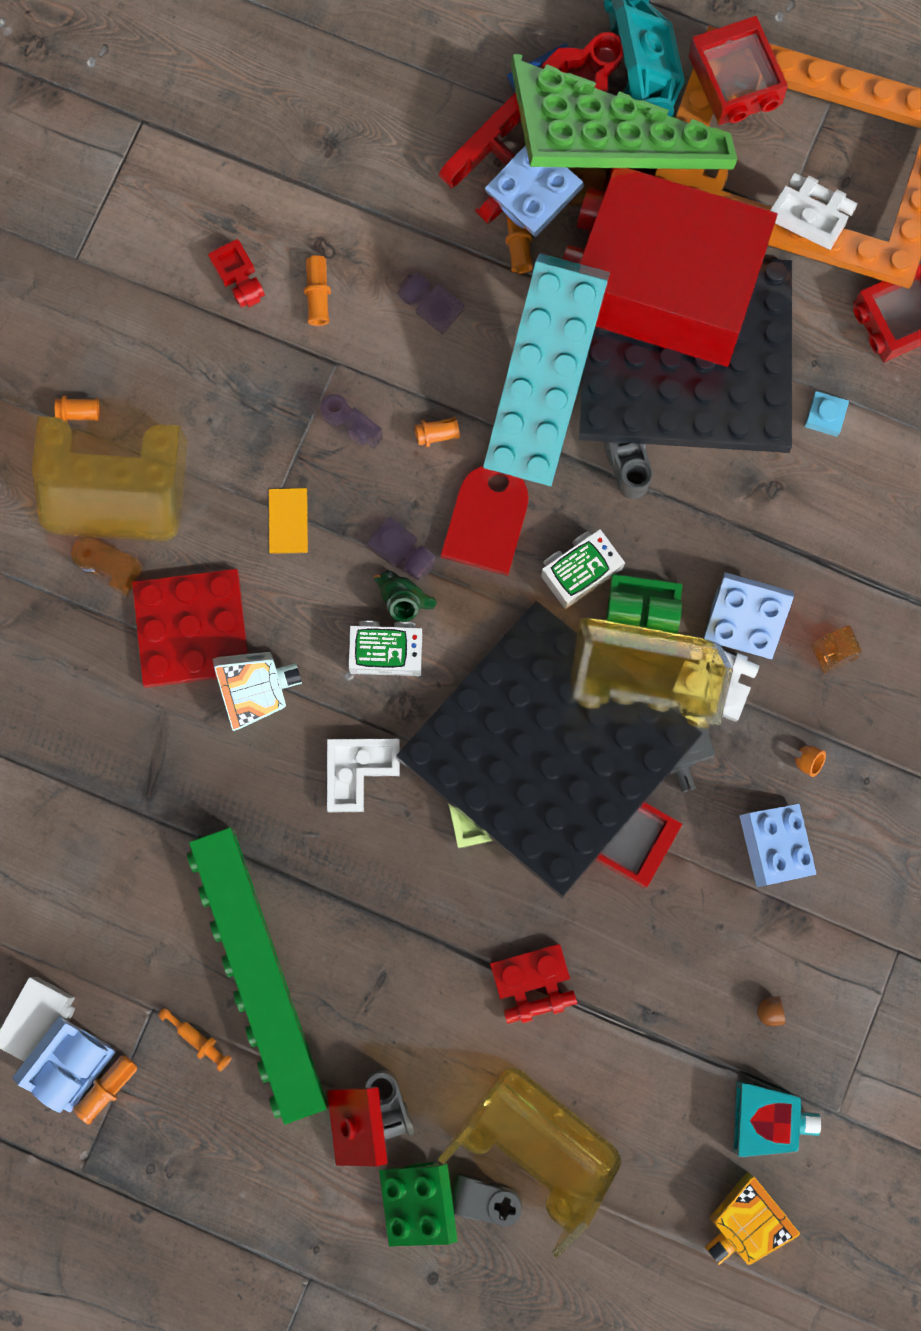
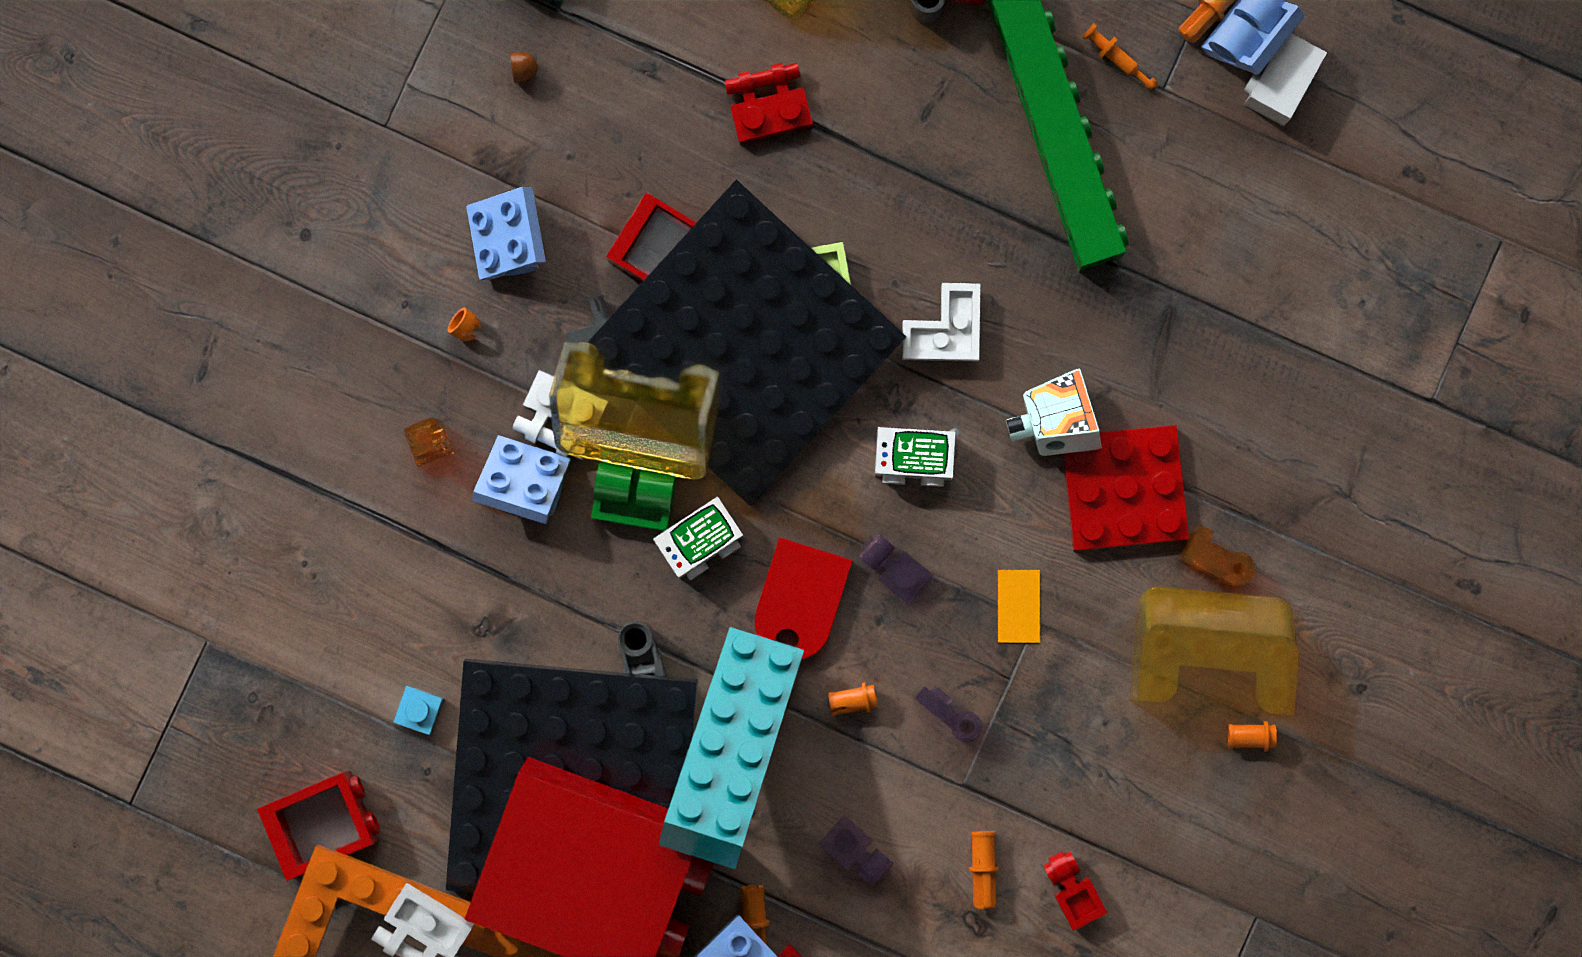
camera: 170 degrees left, 5 degrees up
(402, 596) = (895, 513): dark green animal -> none

